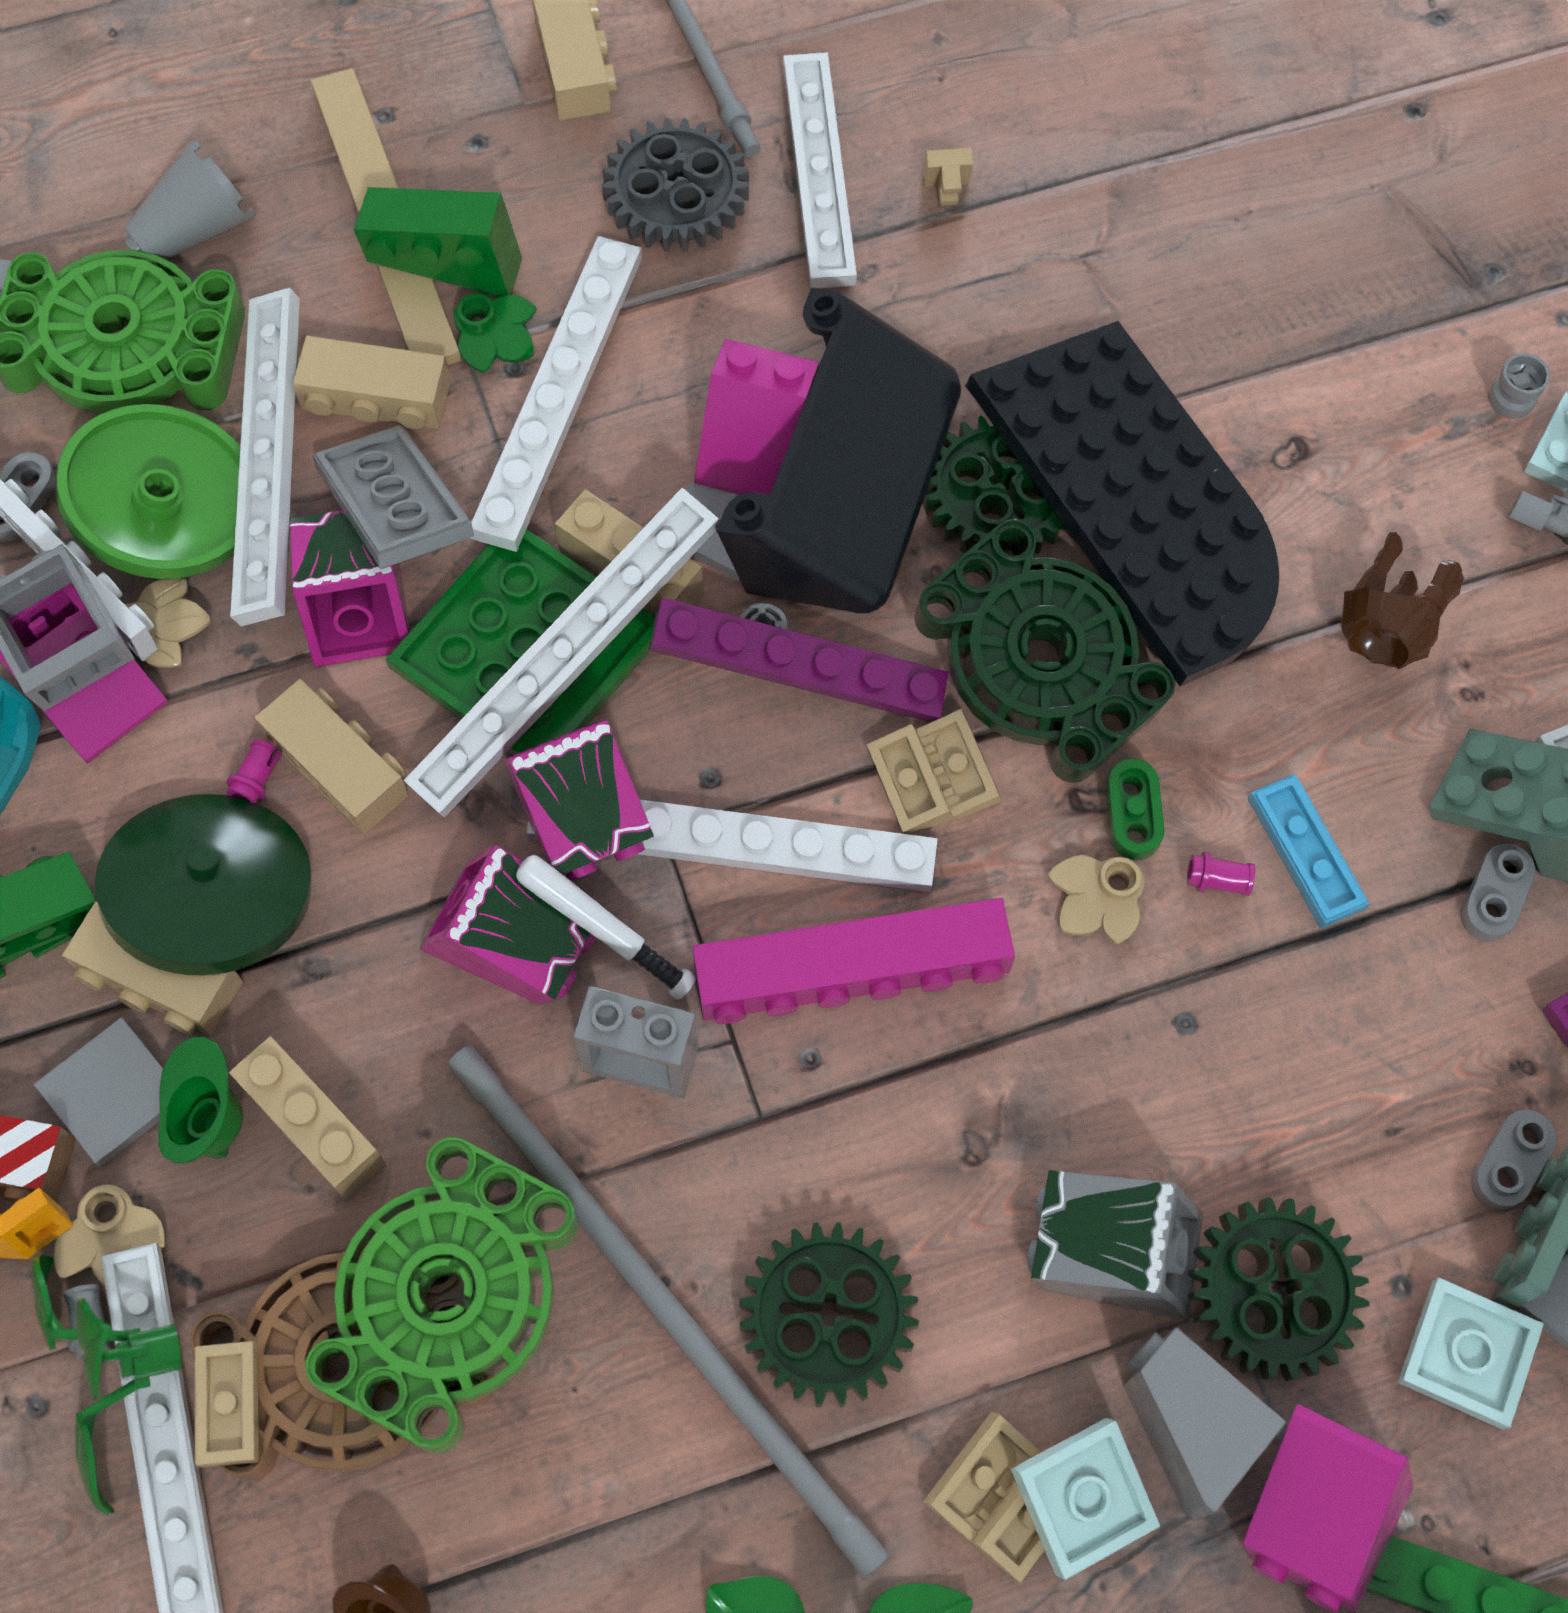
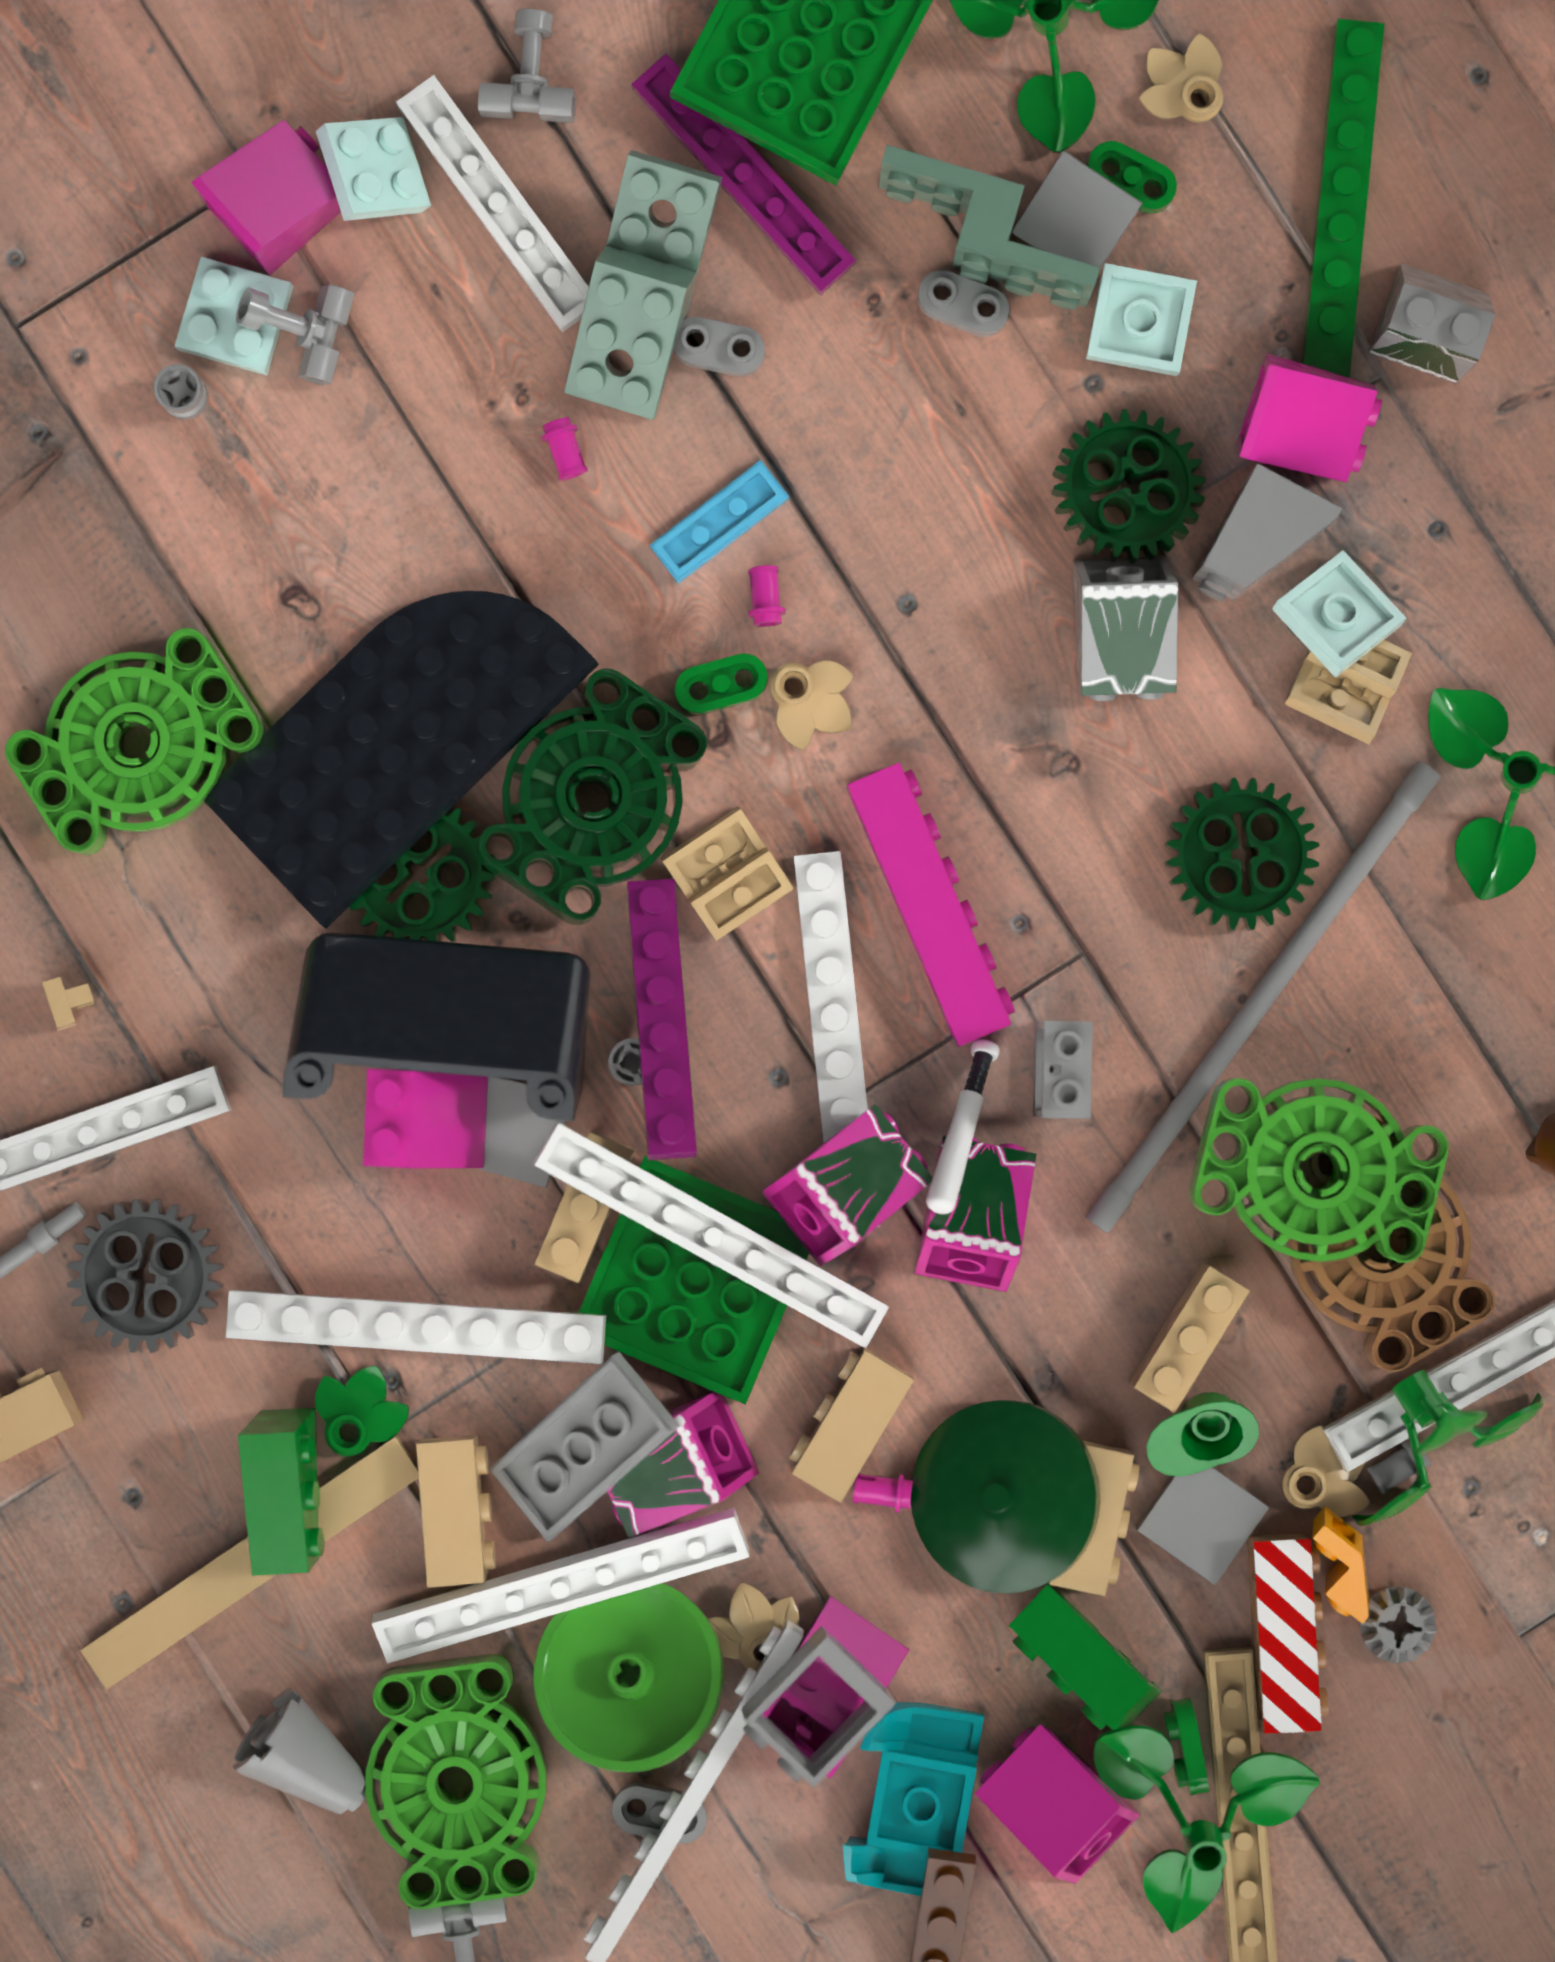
camera: 100 degrees left, 20 degrees up
(226, 1404) = (1447, 1320): tan plate -> none
(1164, 231) = (92, 731): none -> bright green piece
(1410, 617) = (497, 473): reddish brown piece -> none
(1411, 716) = (564, 448): none -> dark pink pin

